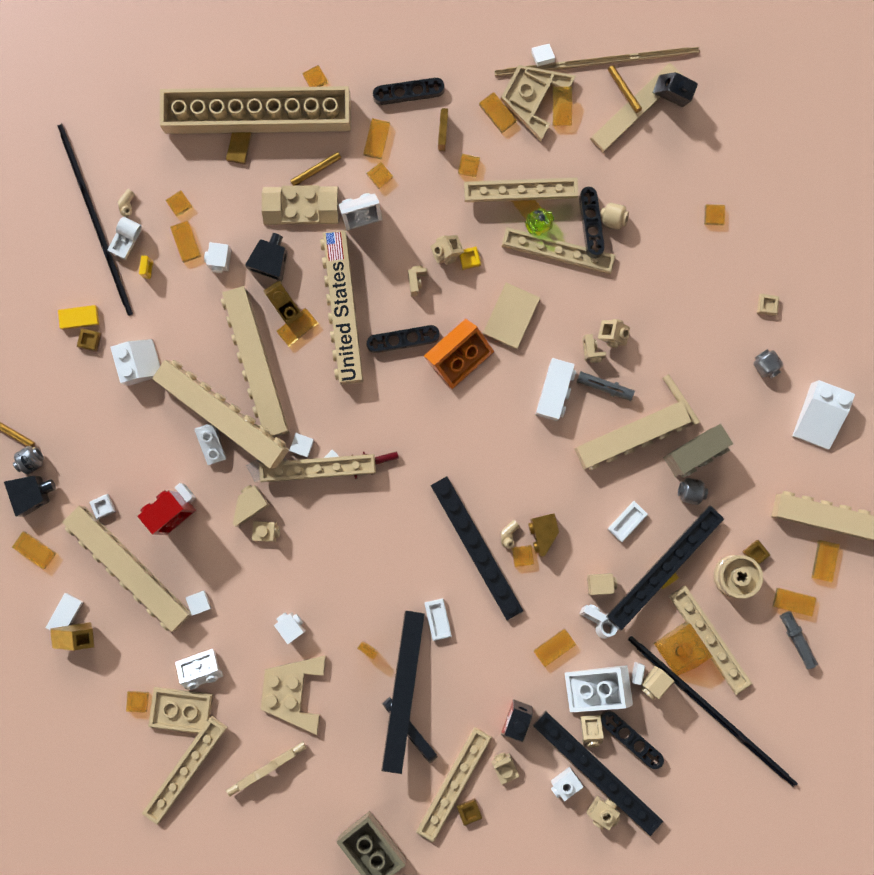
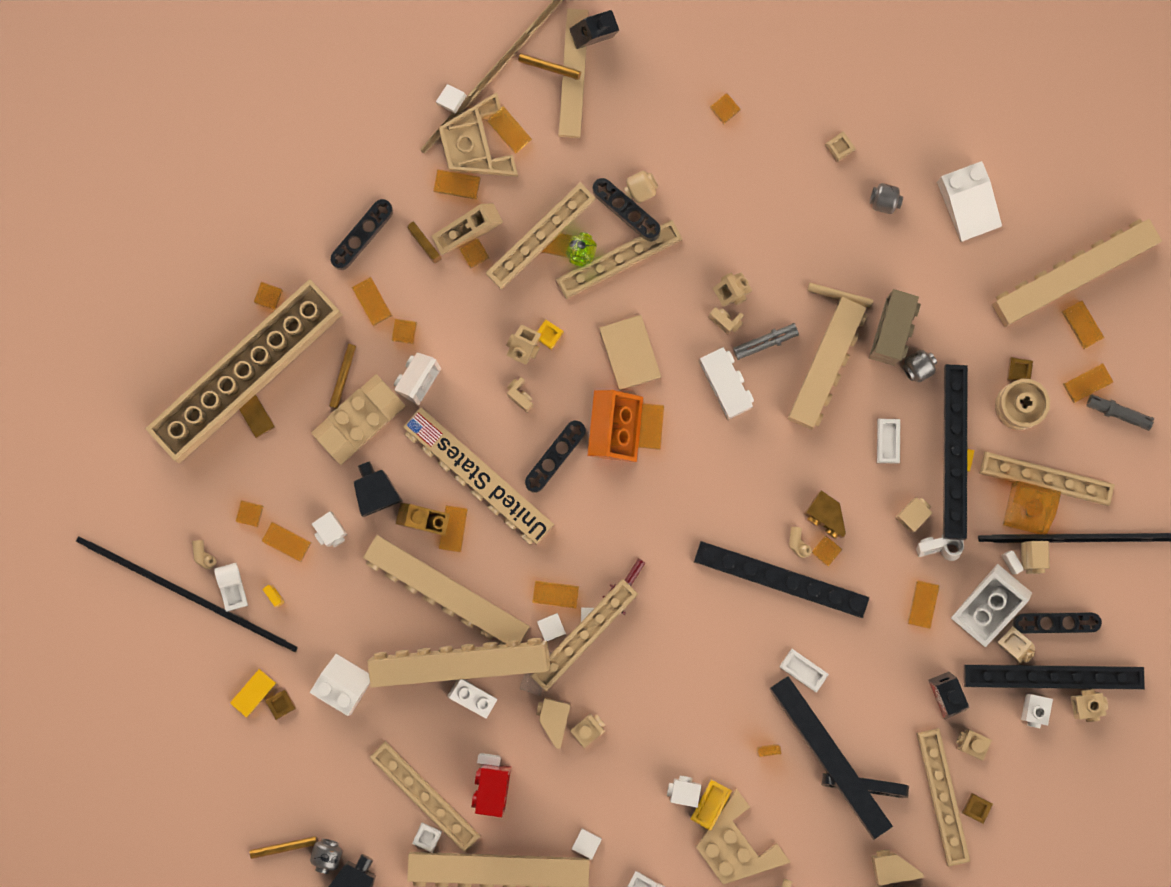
camera: 40 degrees left, 0 degrees up
(125, 479) = (425, 796): none -> tan tile
(299, 651) = (711, 805): none -> yellow tile
(323, 426) = (555, 594): none -> clear yellow tile
(379, 801) = (891, 868): none -> tan slope
(478, 144) = (467, 228): none -> tan slope
(482, 374) = (651, 426): none -> clear yellow tile

